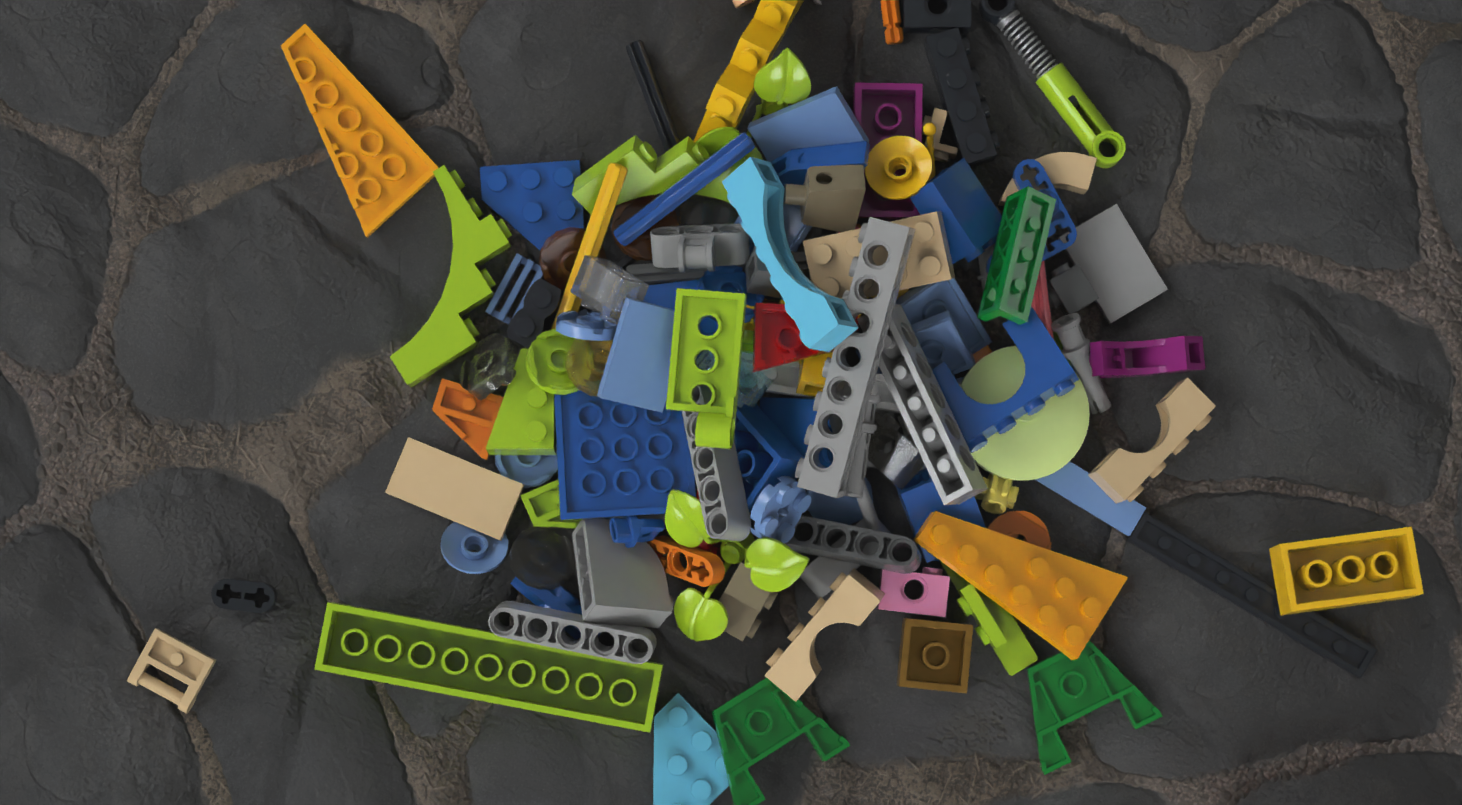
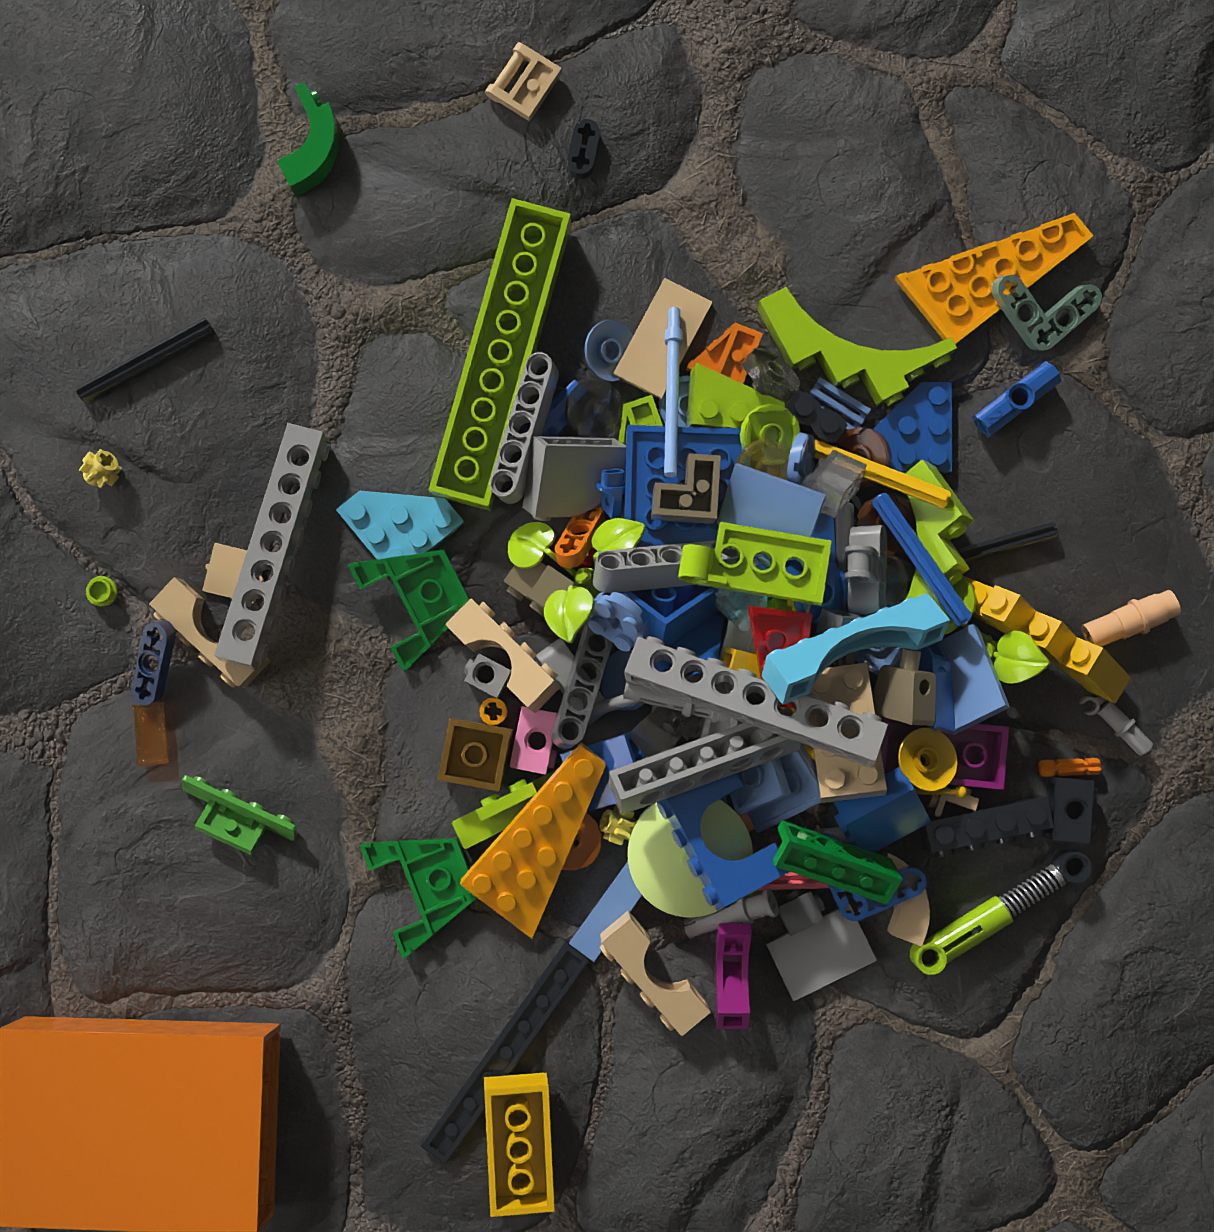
camera: 95 degrees right, 0 degrees up
(403, 78) = (1038, 320): none -> sand green beam
(457, 476) = (673, 340): none -> light blue bar
(479, 80) = (1030, 389): none -> blue piece
(638, 435) = (696, 499): none -> dark tan brick
(846, 635) = (500, 679): none -> light grey brick
(877, 633) = (487, 718): none -> light orange bush

